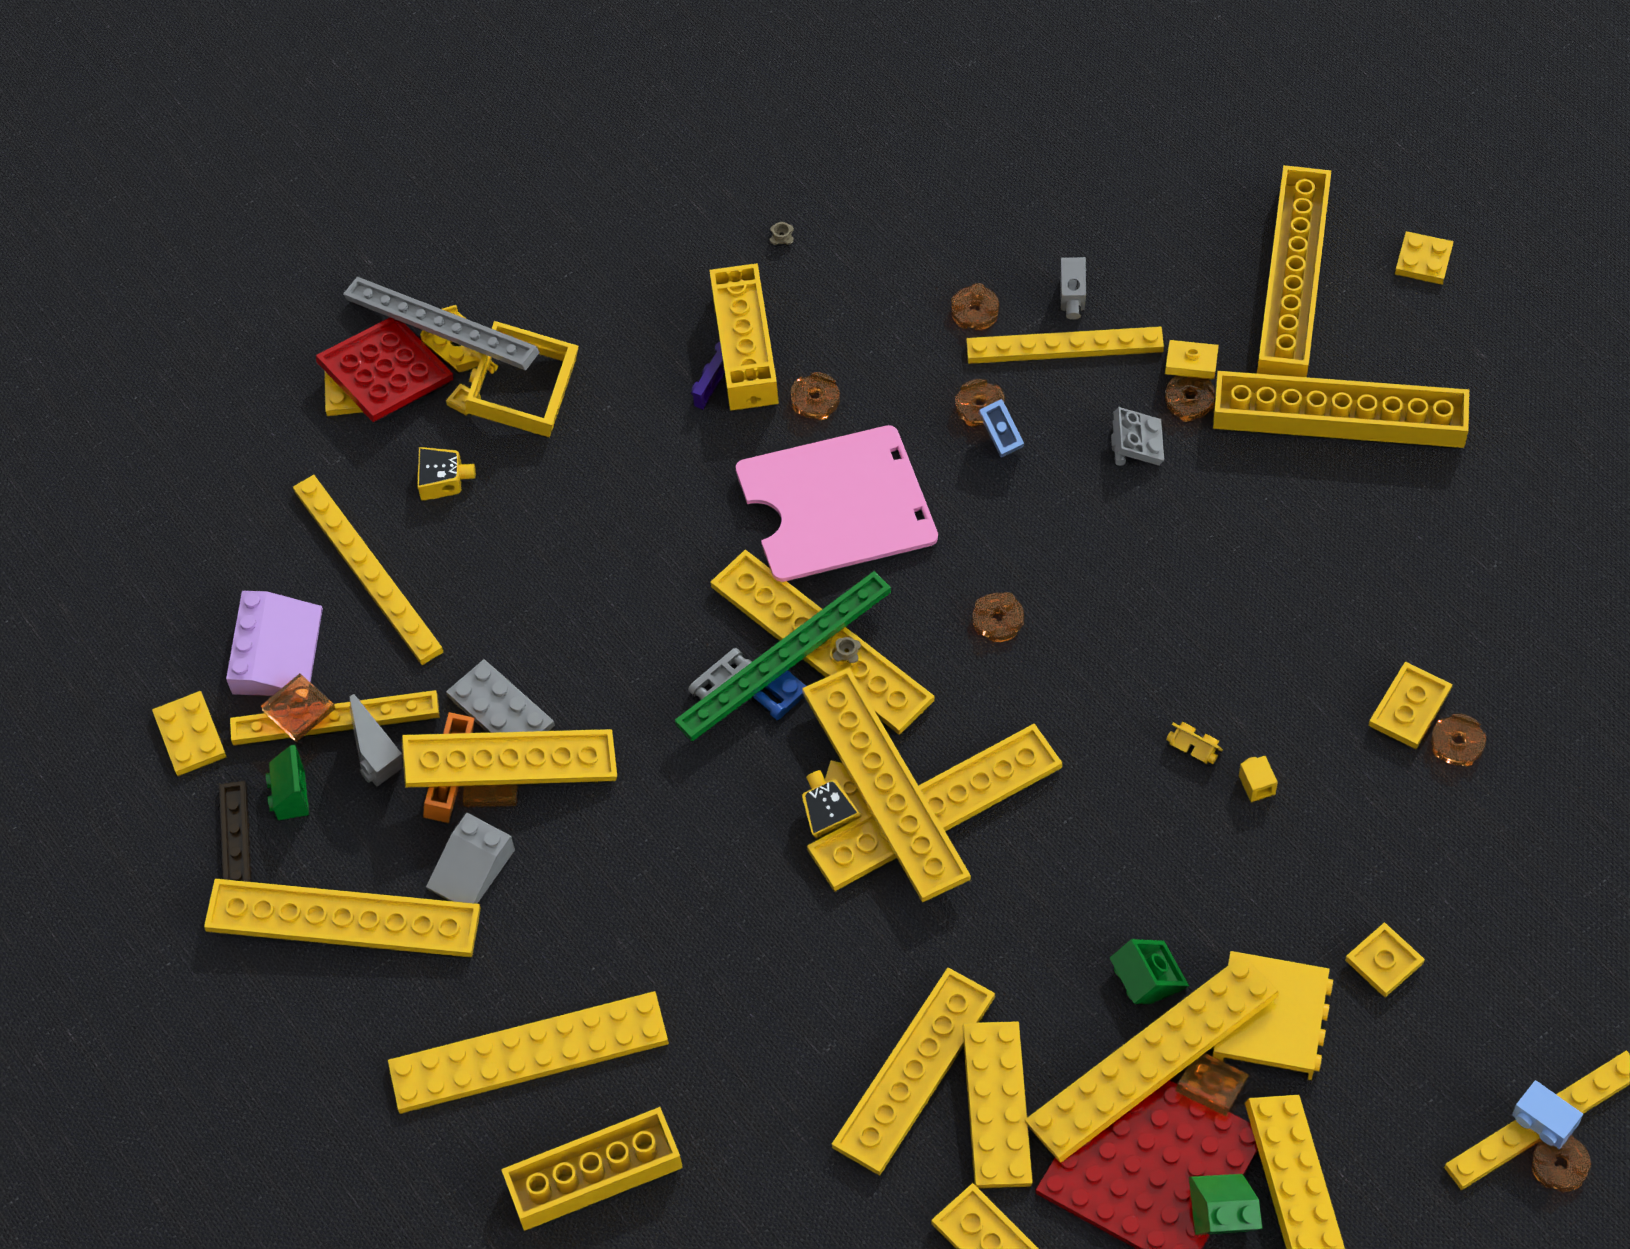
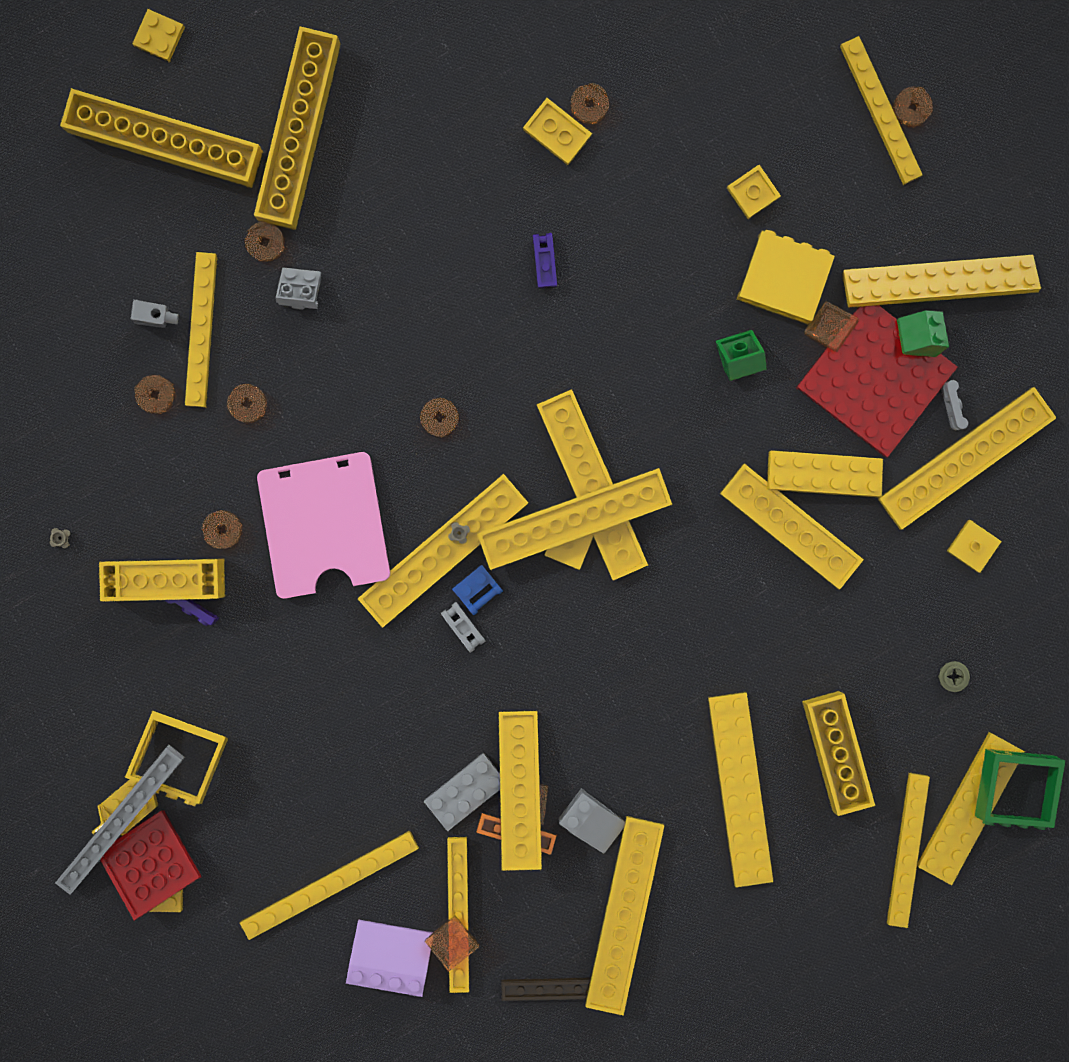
camera: 85 degrees left, 30 degrees up
(189, 733) = (454, 1021): yellow plate -> none
(288, 785) = (513, 951): green slope -> none
(376, 751) = (496, 889): light grey slope -> none
(441, 473) = (253, 824): torso -> none
(455, 399) = (181, 807): yellow tile -> none
(782, 656) = (458, 579): green plate -> none
(827, 805) = (586, 561): torso -> none
(1001, 428) = (279, 390): light blue brick -> none
(1151, 1058) = (811, 363): yellow plate -> none
(1185, 737) = (559, 297): yellow hinge -> none
(1191, 359) = (232, 233): yellow plate -> none
(1231, 712) = (545, 261): none -> dark purple plate
(1257, 778) = (602, 252): yellow brick -> none
(1547, 1115) = (889, 106): light blue brick -> none

